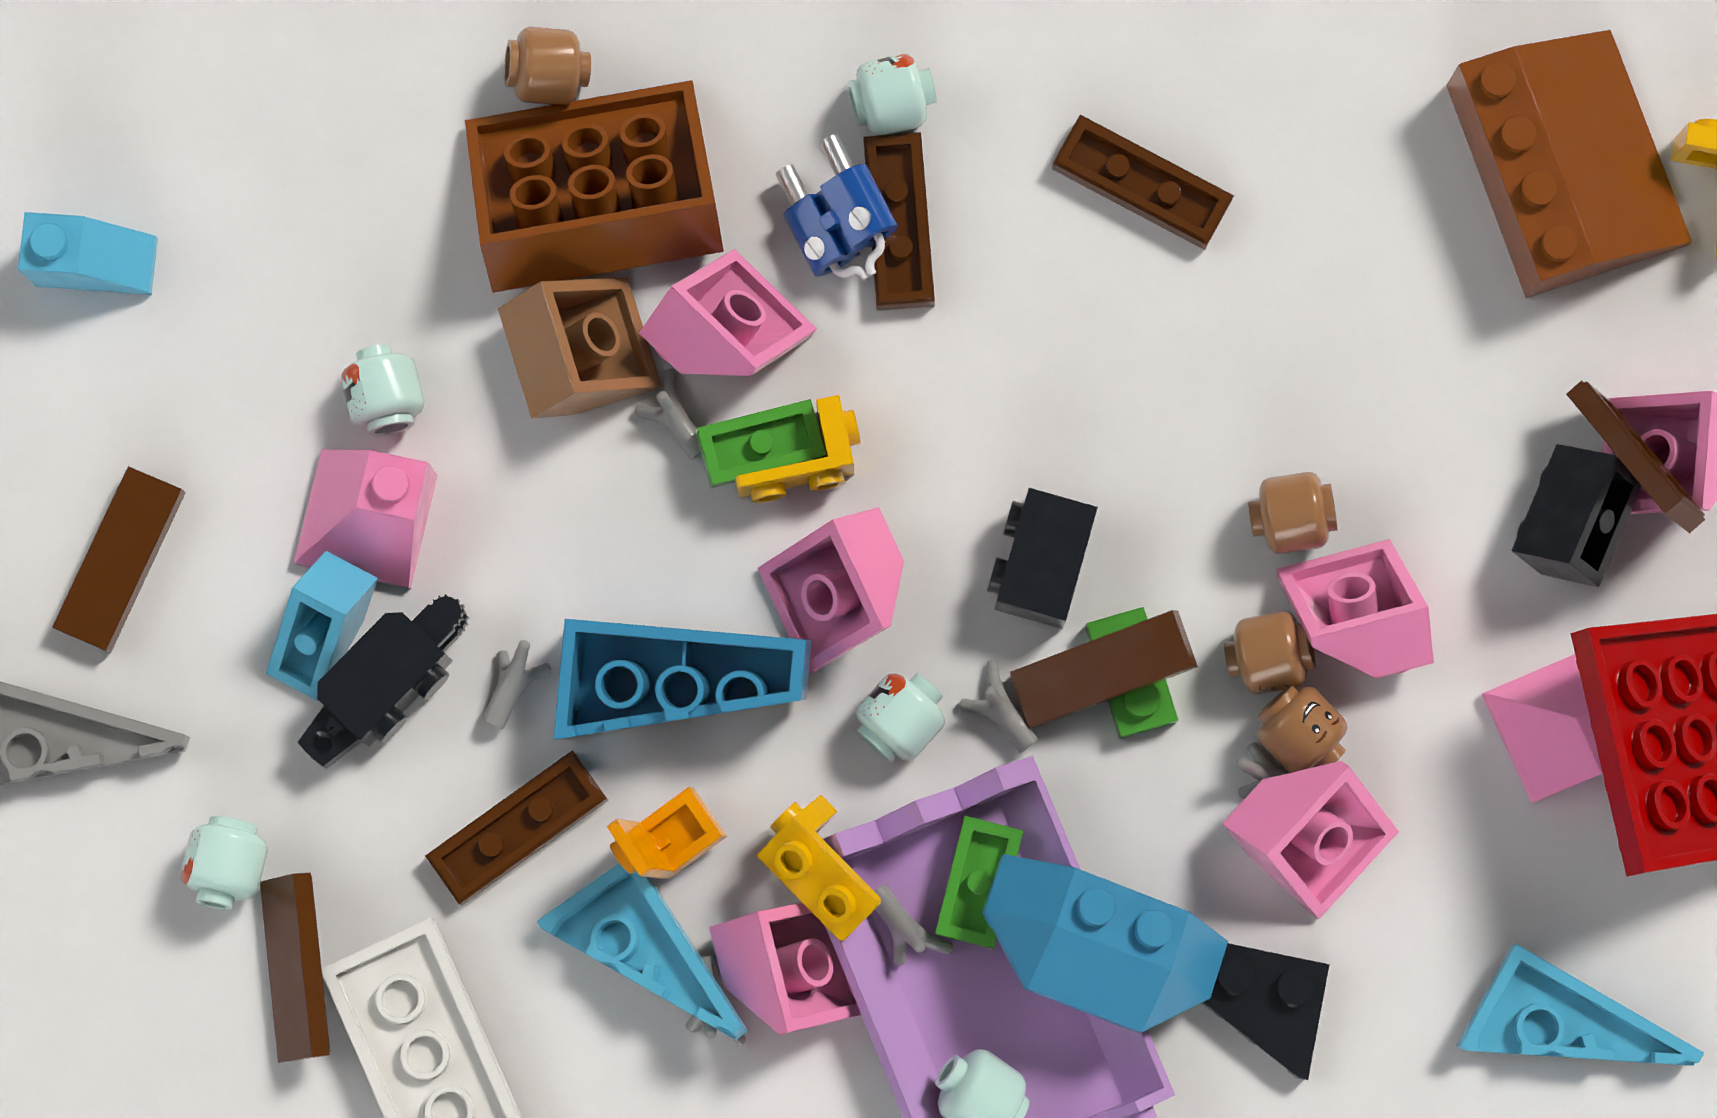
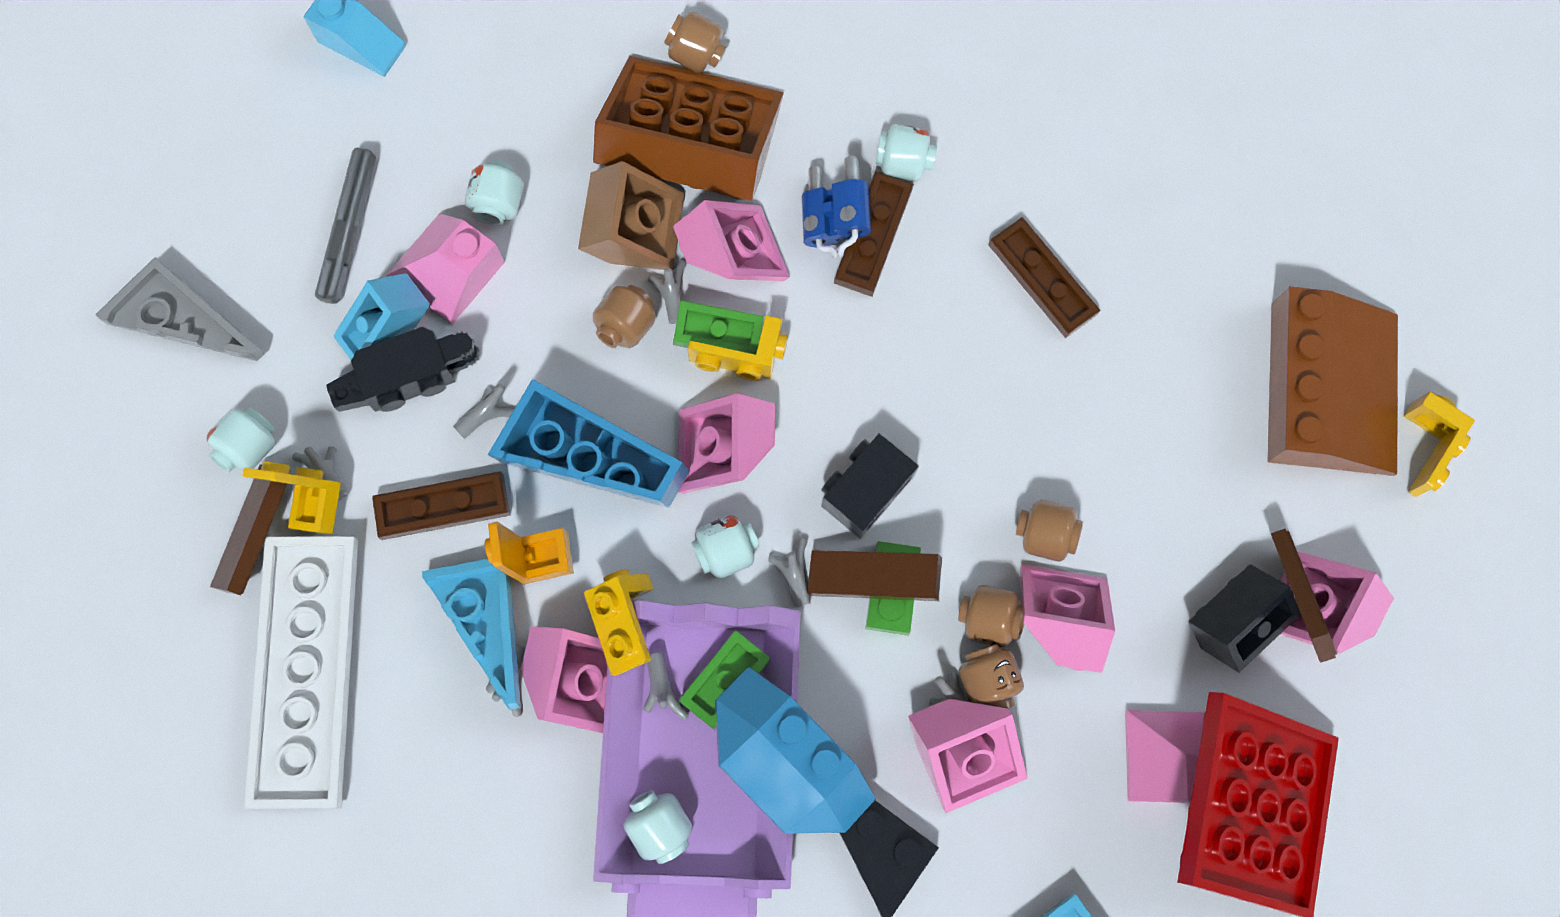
camera: 20 degrees right, 5 degrees down
(119, 559) = (278, 225): reddish brown tile -> none
(208, 521) = (345, 226): none -> dark grey axle
(345, 851) = (314, 461): none -> light grey bar
(354, 893) = (313, 498): none -> yellow bracket
(633, 480) = (624, 316): none -> medium nougat head

